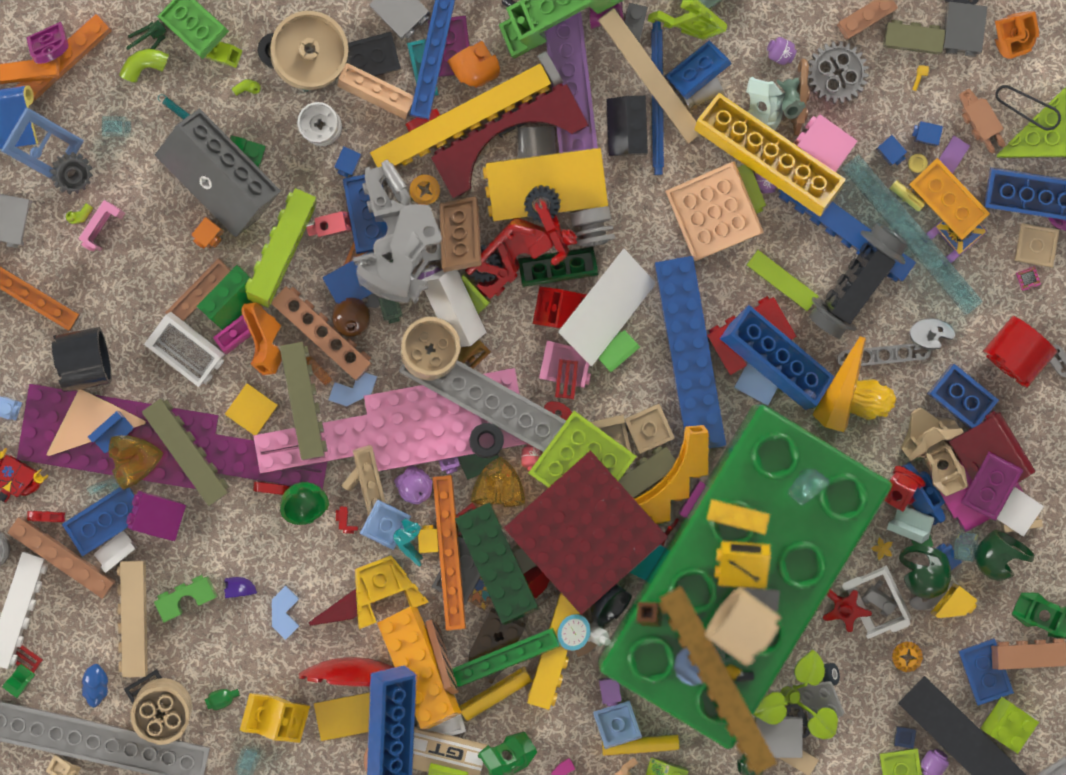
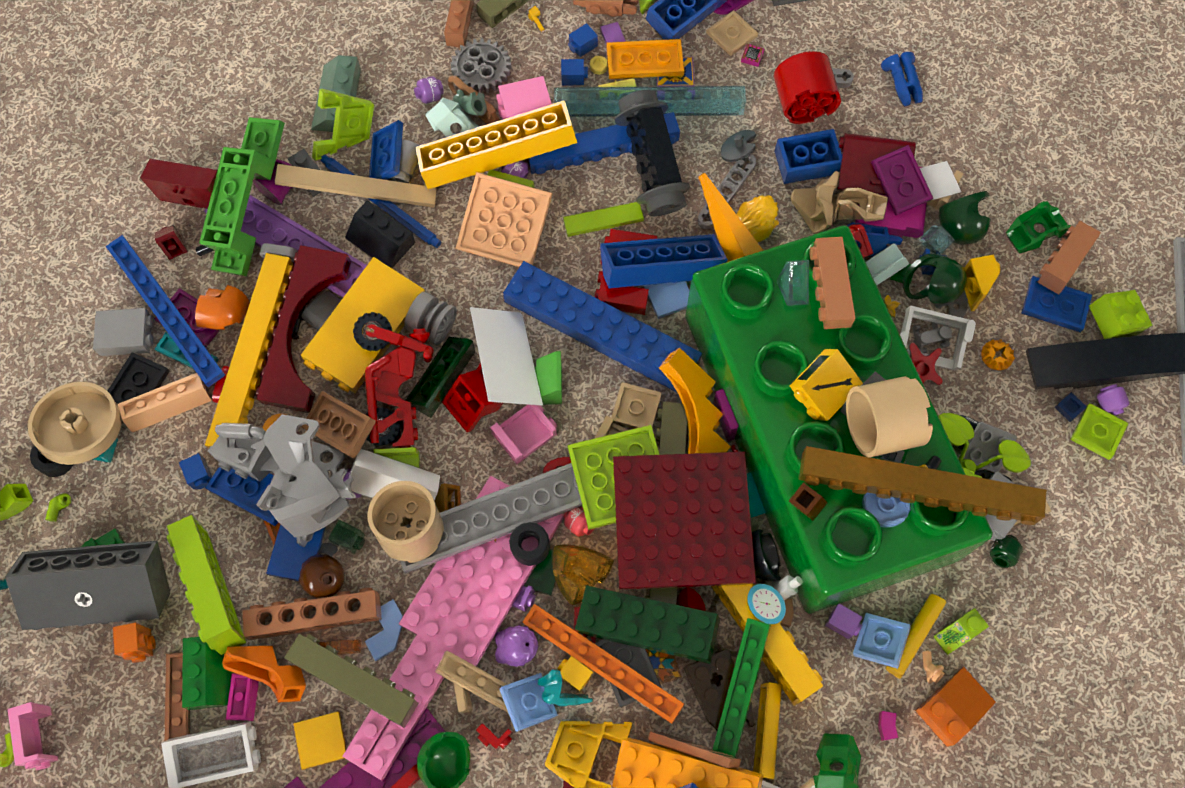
camera: 50 degrees left, 20 degrees down
(309, 119) = (132, 461): white wheel -> none
(337, 224) = (231, 527): coral torso -> none
(564, 395) = (525, 426): red tile -> none
(738, 516) = (777, 355): yellow plate -> none
(823, 513) = (832, 283): none -> nougat brick

